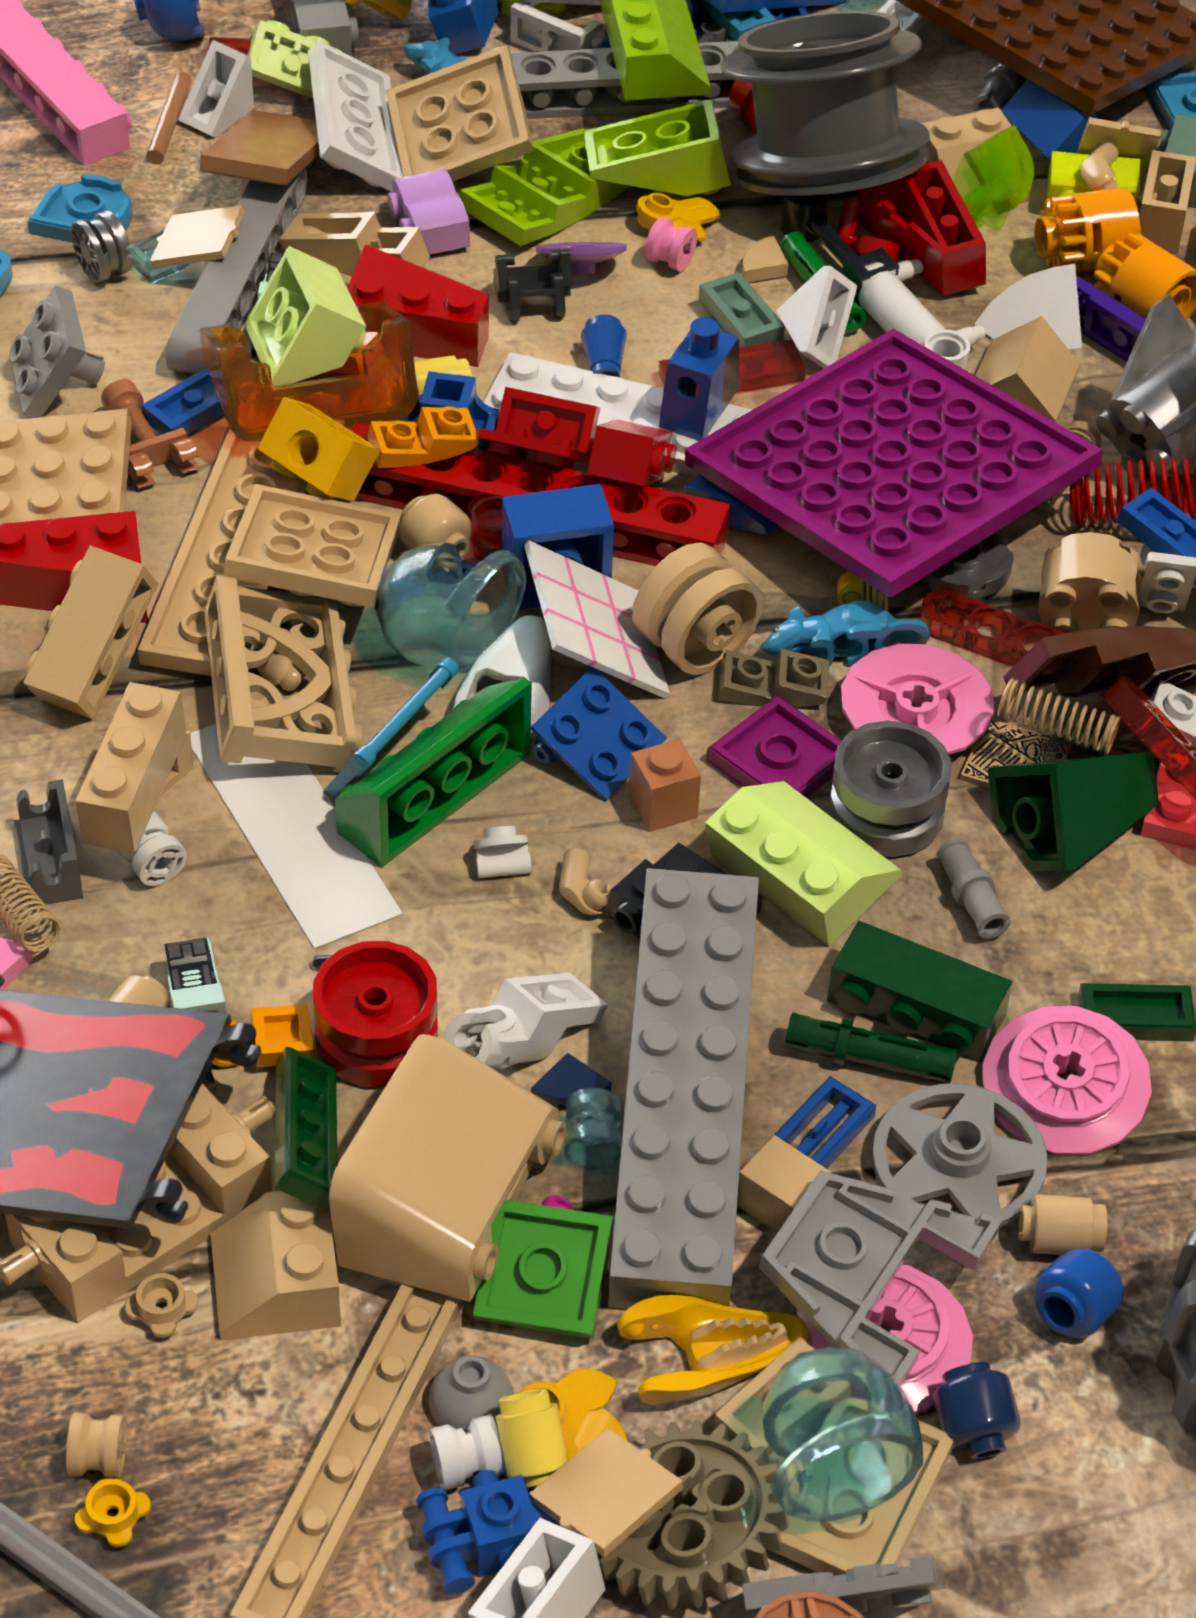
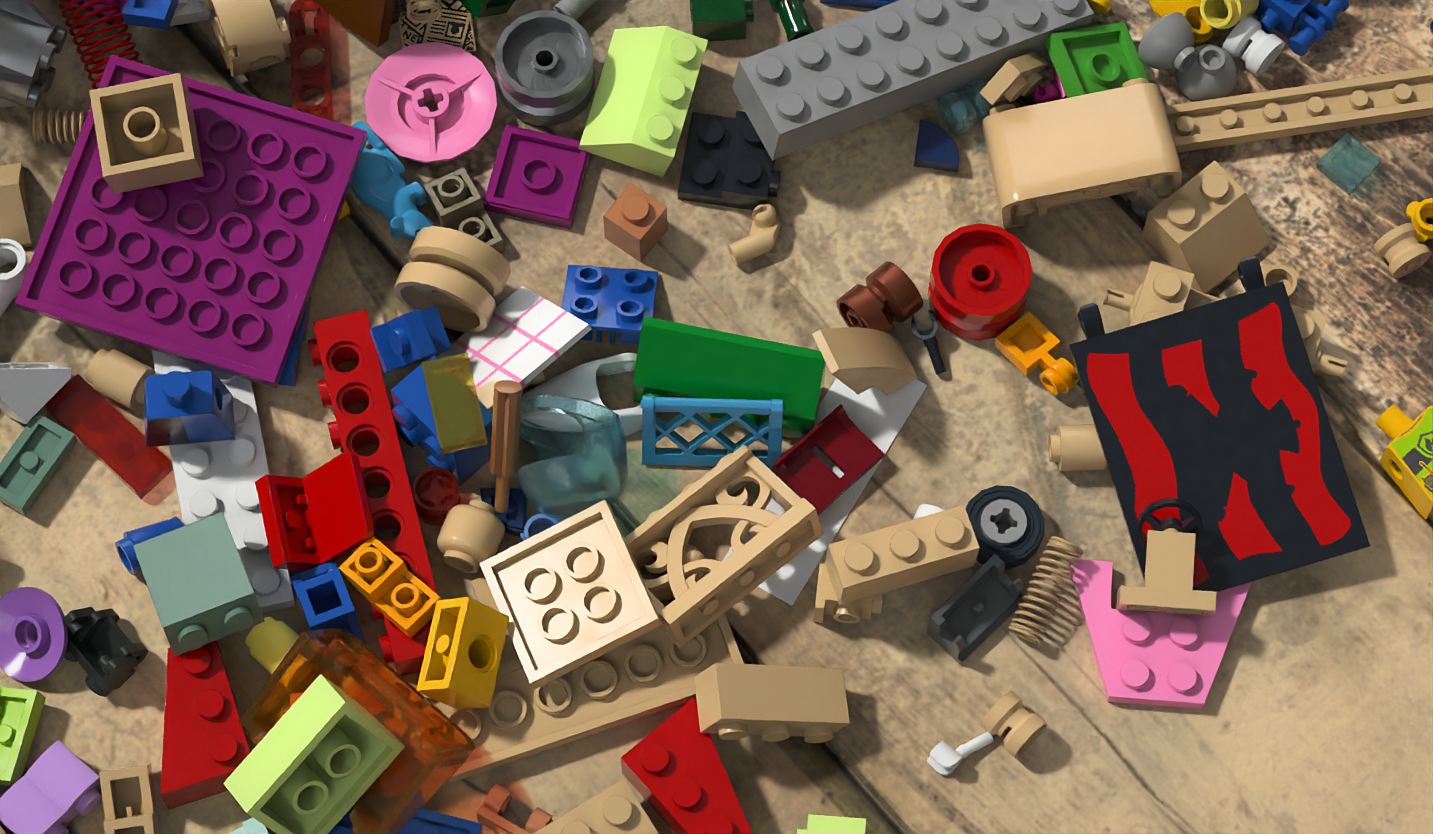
camera: 120 degrees left, 20 degrees up
(91, 915) = (1011, 544): none -> black wheel
(193, 976) = (1029, 423): leg -> none
(250, 1475) = (1348, 163): none -> clear light blue tile
(293, 795) = (843, 445): none -> dark red piece
(305, 1127) = (1110, 255): dark green tile -> none
(358, 845) = (865, 358): none -> tan slope
(423, 917) = (884, 299): none -> copper wheel
(502, 853) = (763, 306): white plate -> none
(505, 536) = (505, 438): none -> medium nougat axle
(520, 1342) = (1169, 44): none -> light grey brick
(524, 320) = (198, 583): none -> sand green brick
(525, 1019) = (919, 185): white plate -> none
(547, 508) = (454, 403): none -> clear yellow tile
(576, 1135) = (1015, 78): none -> tan plate
(631, 452) = (296, 427): red brick -> none
(650, 535) = (409, 339): none -> blue brick
(772, 381) = (118, 377): none -> tan brick
(985, 416) = (146, 133): none -> tan brick

